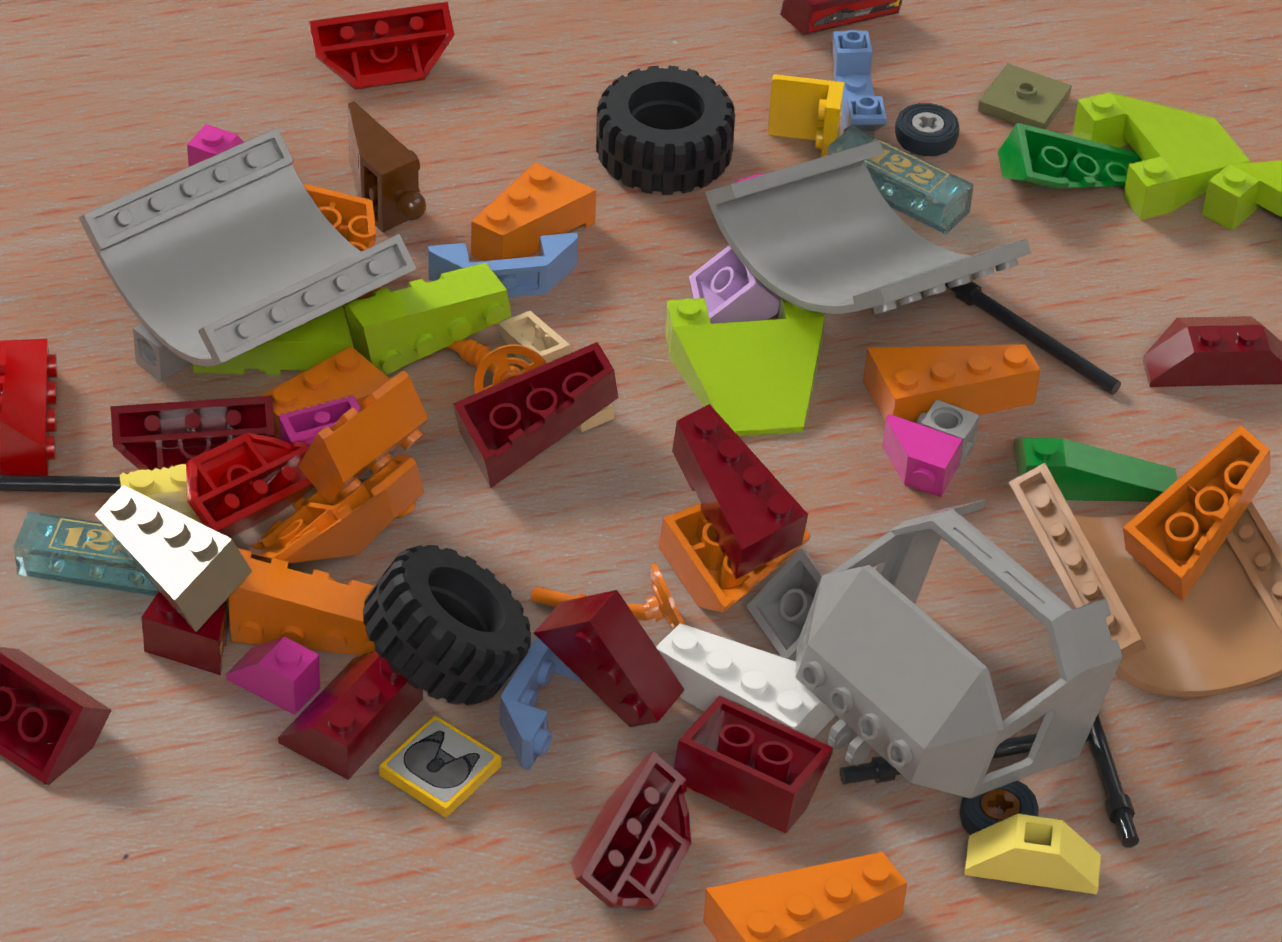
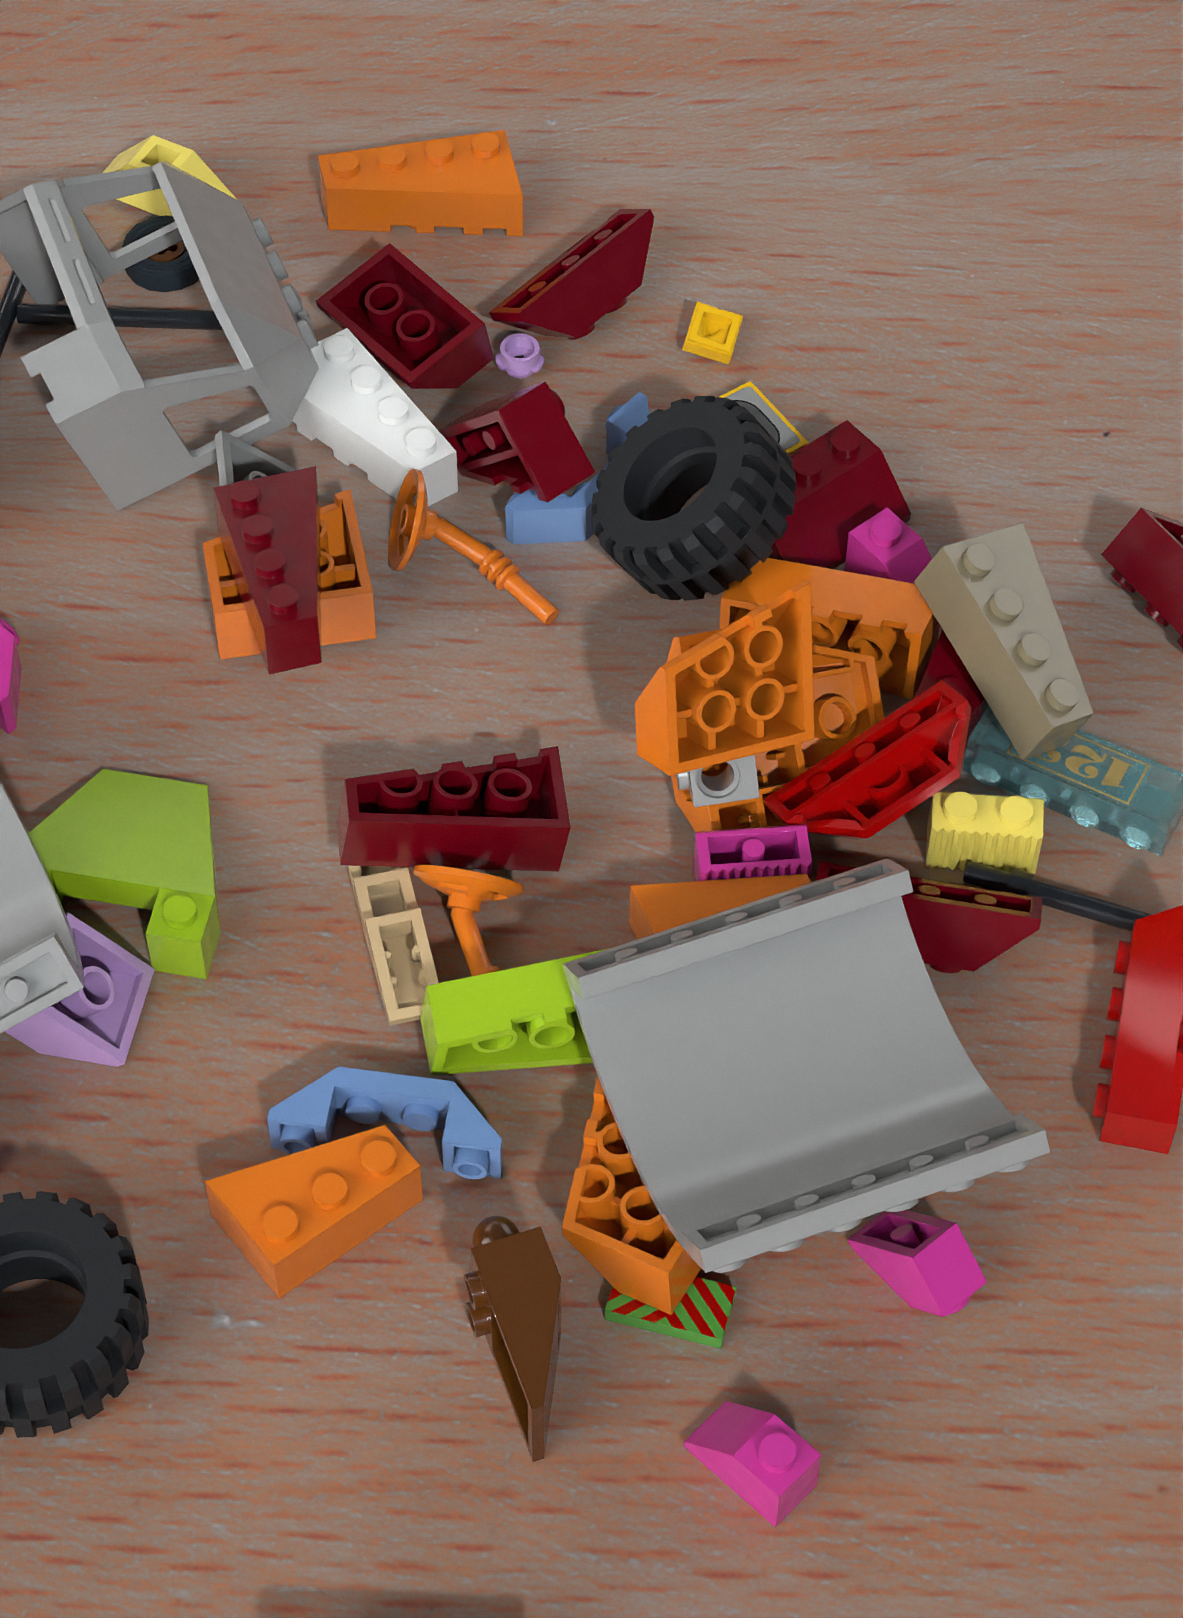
camera: 160 degrees left, 10 degrees up
(494, 846) = (712, 333): none -> yellow tile

